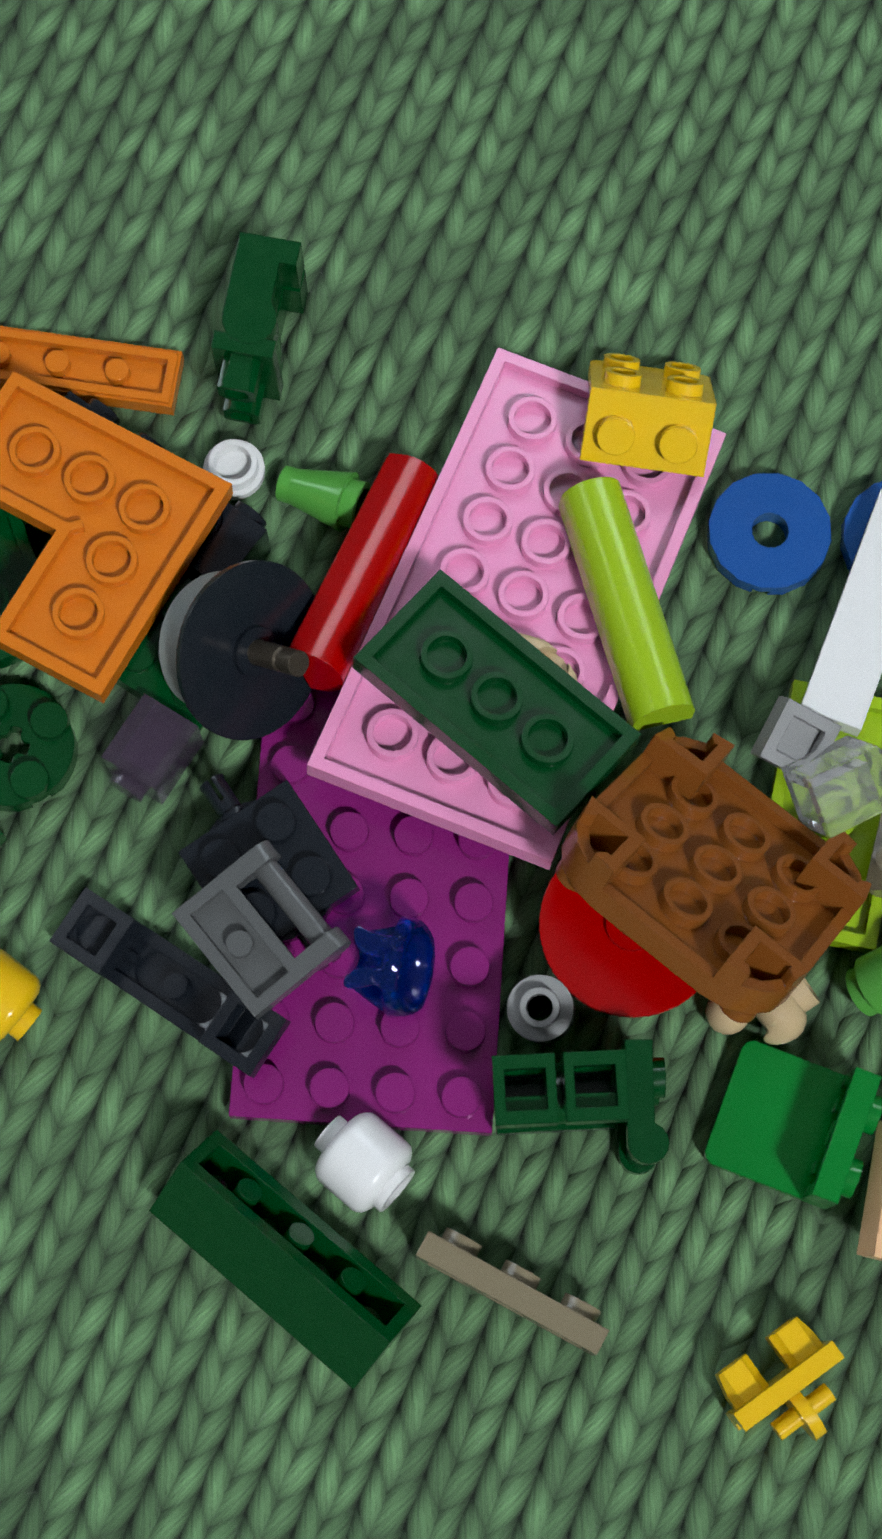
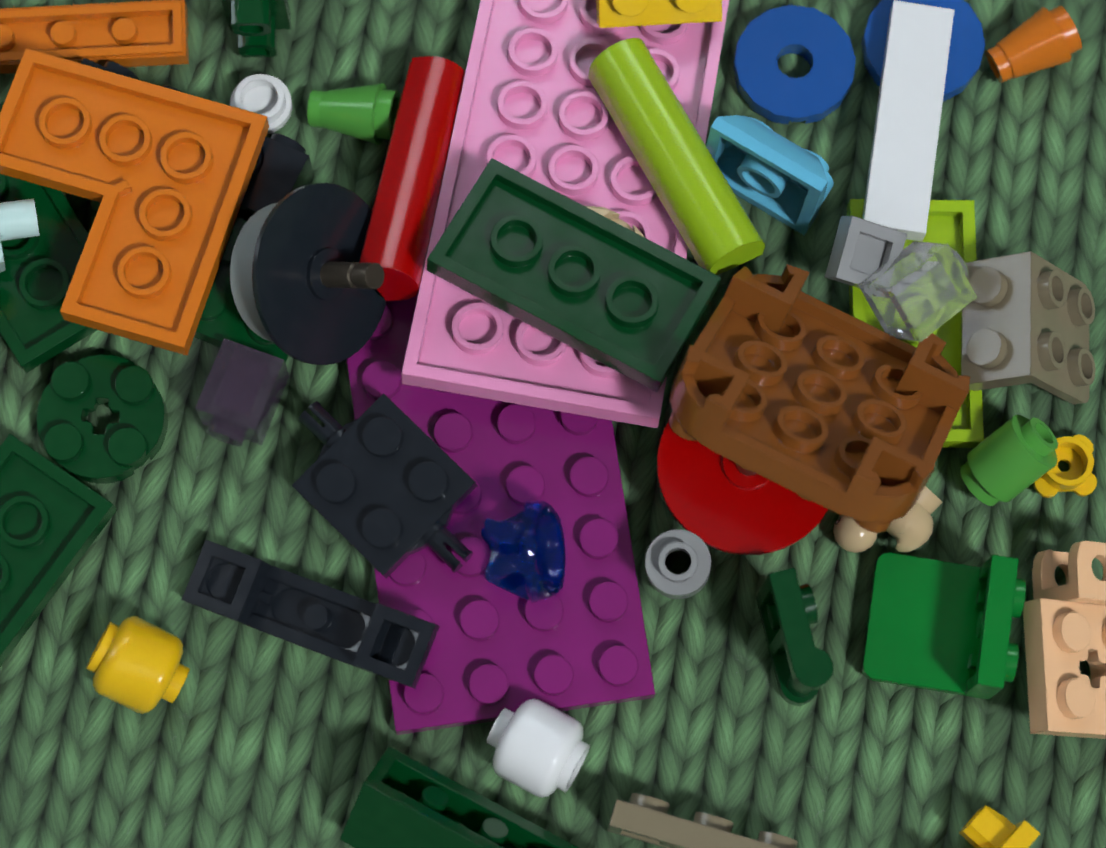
camera: 15 degrees left, 0 degrees up
(244, 944) = (376, 557): dark grey plate -> none
(569, 1096) = (707, 644): dark green hips -> none
(719, 634) = (770, 170): none -> medium azure slope

